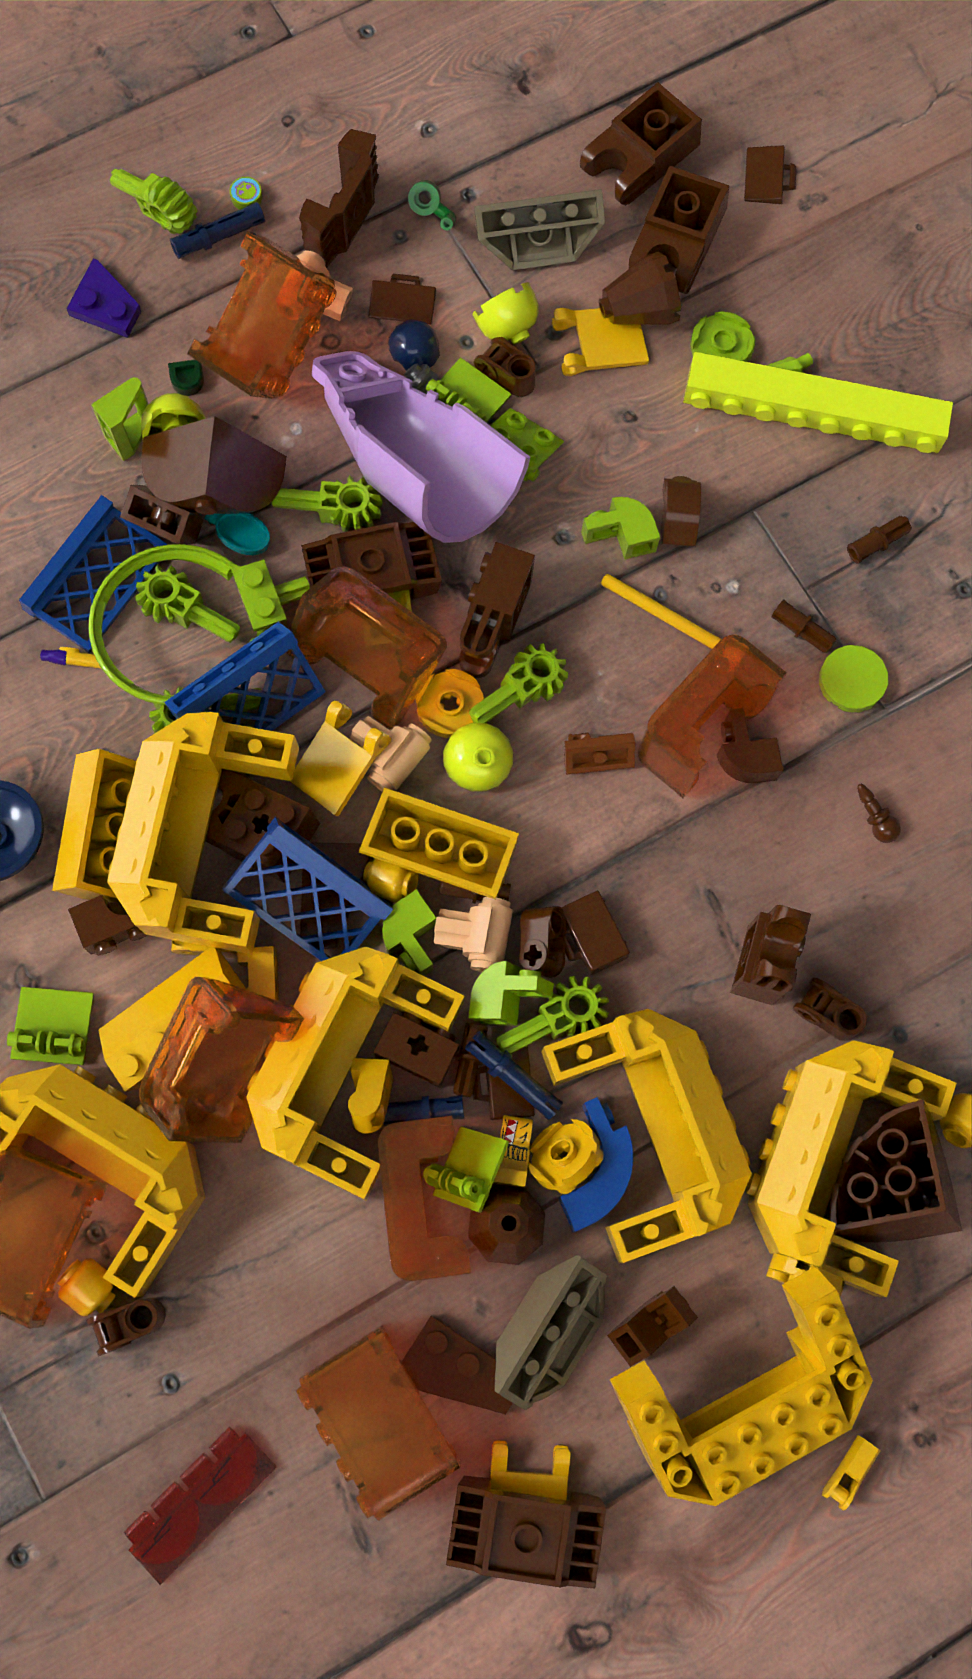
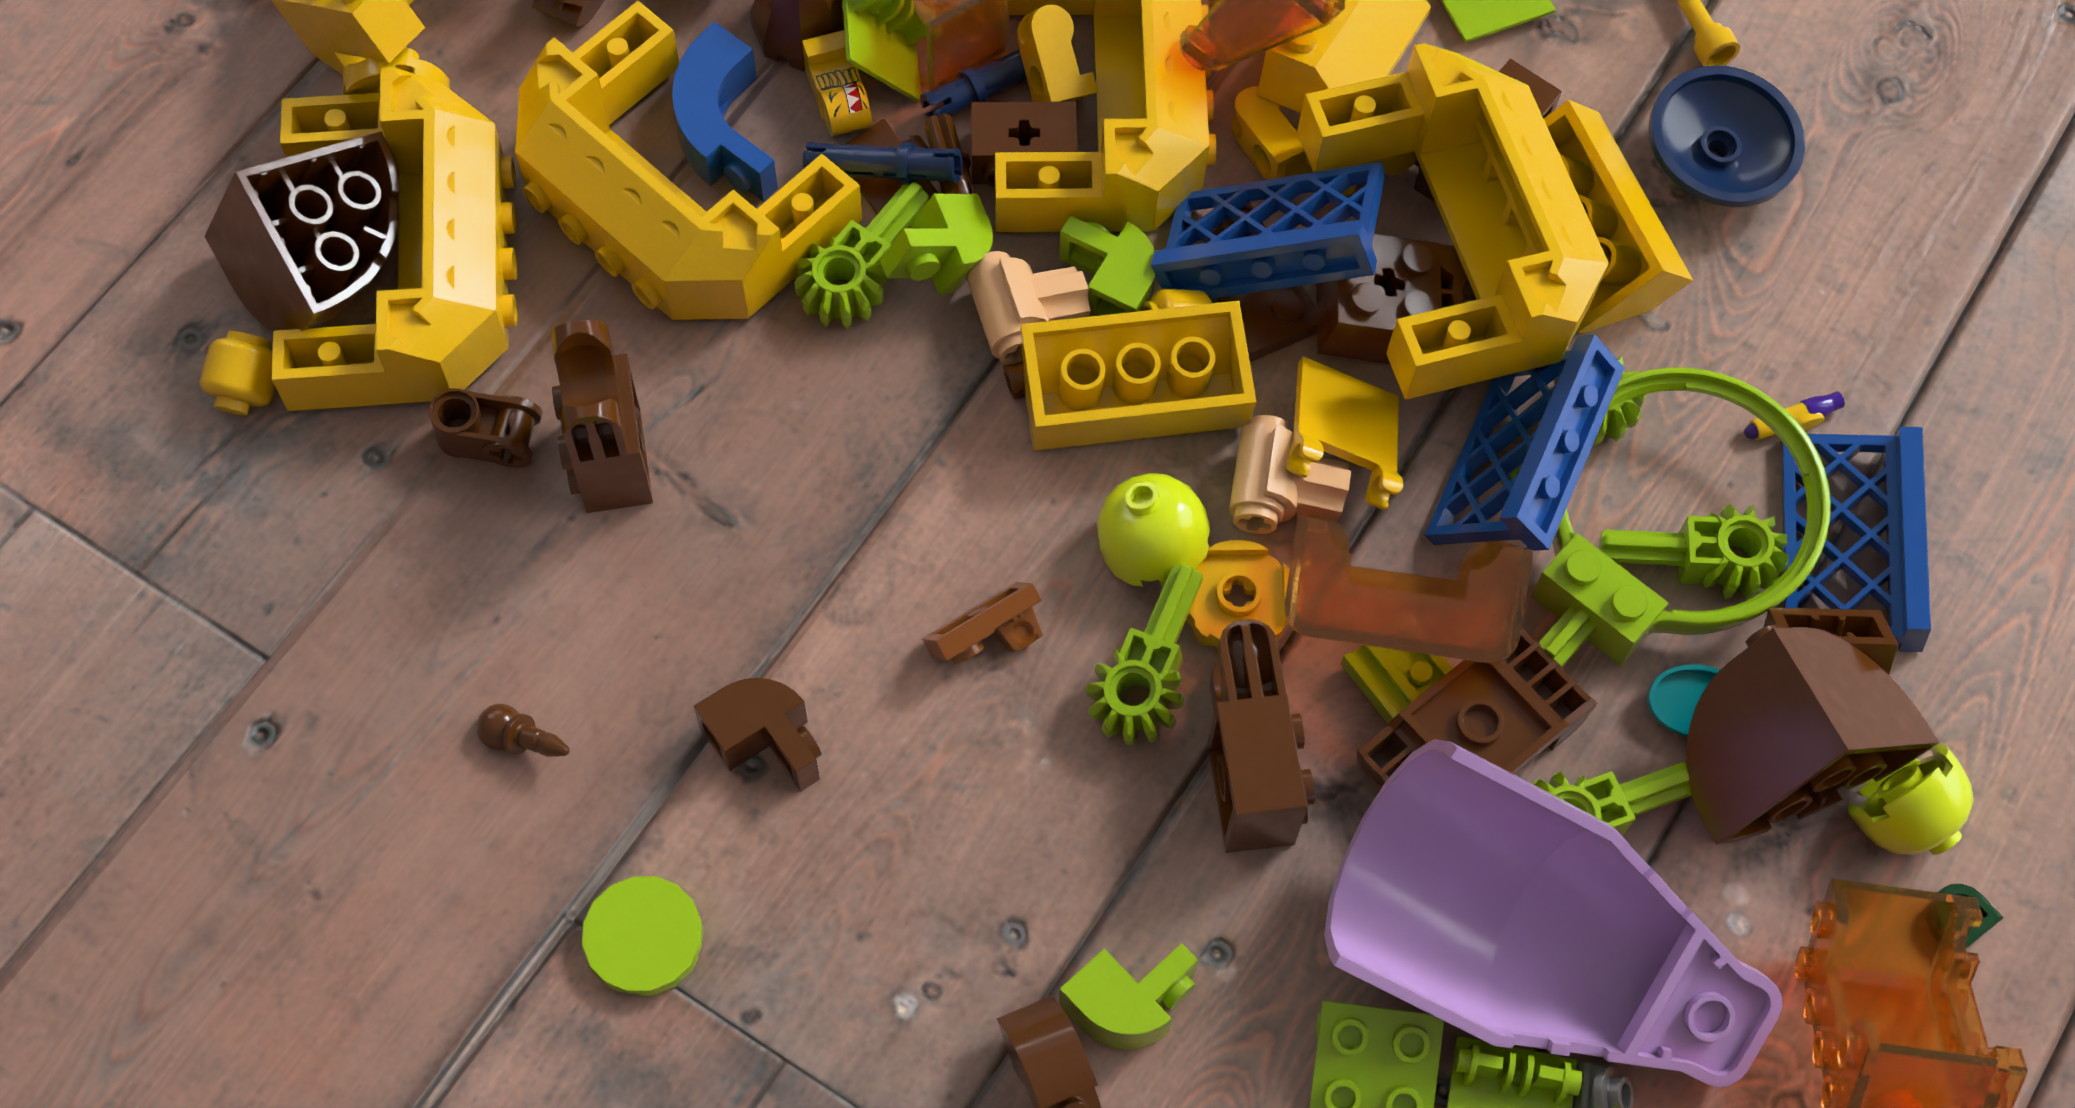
camera: 155 degrees right, 10 degrees down
(112, 411) = (1997, 756): lime tile -> none
(543, 936) = (930, 336): reddish brown piece -> none
(568, 1172) = (746, 104): yellow plate -> none
(593, 934) = (867, 381): reddish brown piece -> none
(660, 611) = (857, 877): yellow piece -> none
(729, 675) = (844, 793): clear orange windscreen -> none
(803, 626) = (758, 979): reddish brown axle -> none

